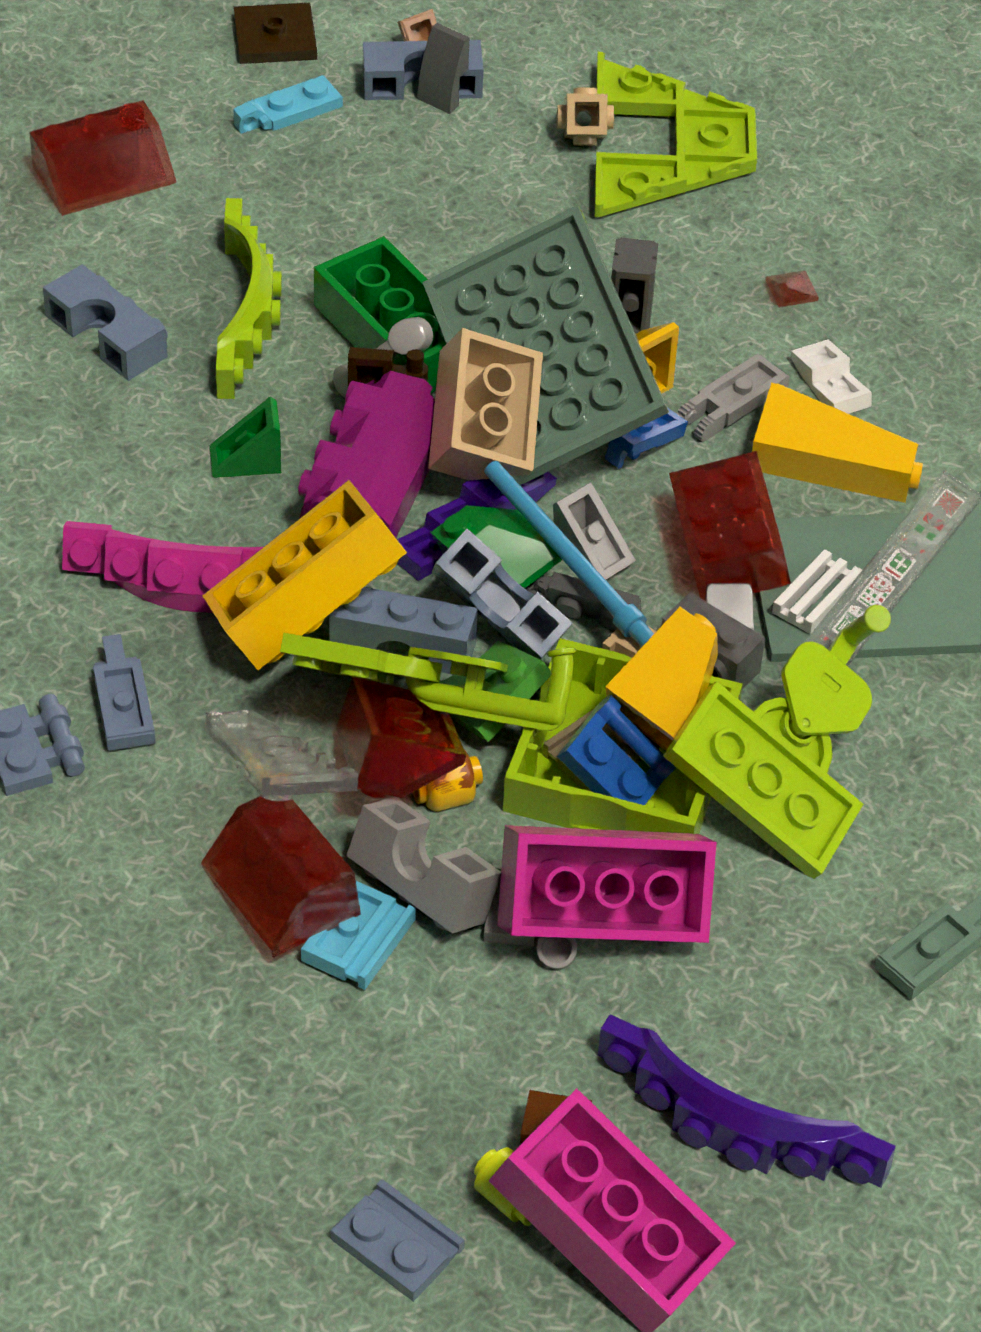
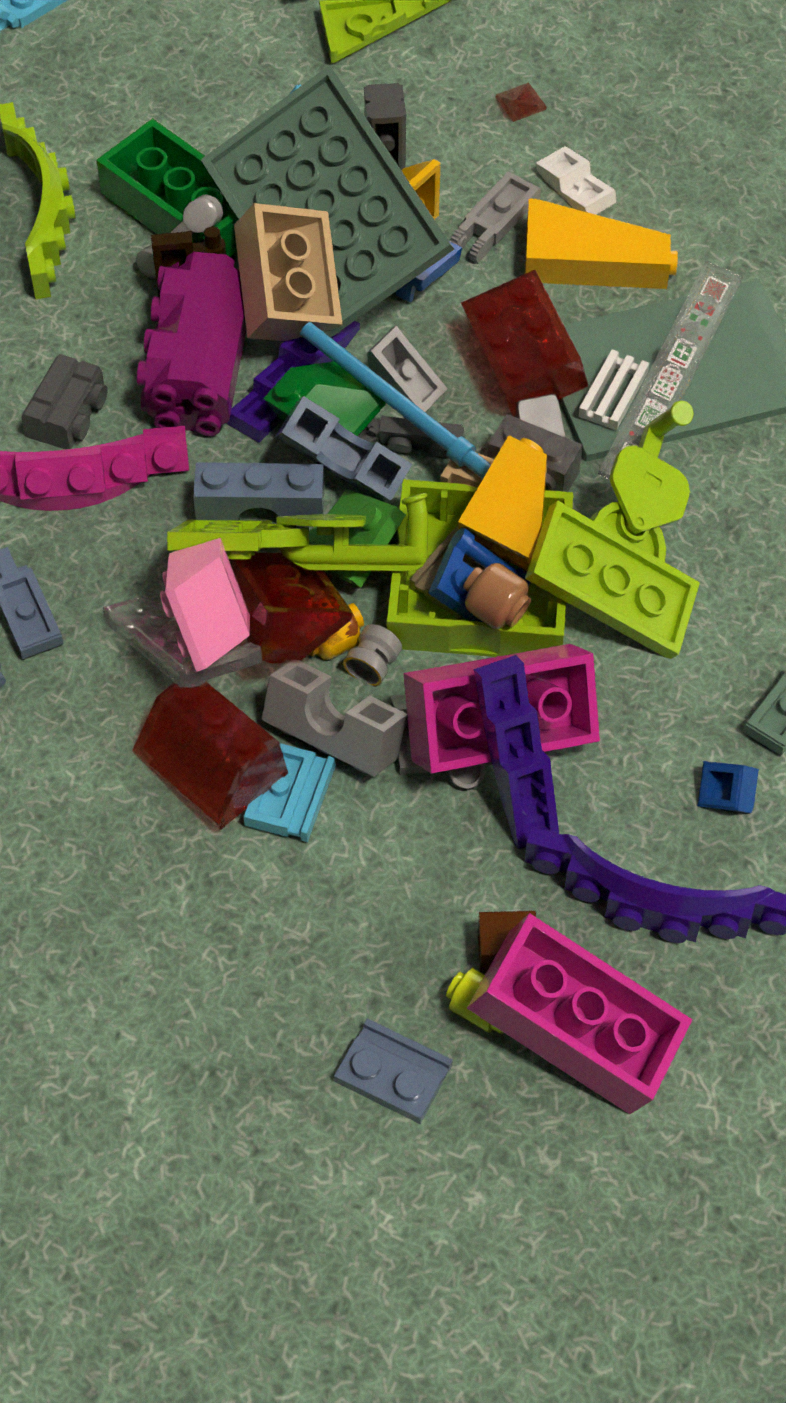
camera: 10 degrees left, 10 degrees up
(219, 502) = (64, 402): none -> dark grey brick
(249, 445) = (80, 336): green slope -> none
(304, 575) = (163, 464): yellow brick -> none
(307, 712) = (205, 602): none -> bright pink slope
(486, 810) = (374, 652): none -> light grey wheel
(610, 926) = (516, 749): none -> dark purple slope
(629, 769) = (496, 596): none -> medium nougat head
(843, 1019) = (728, 786): none -> blue slope

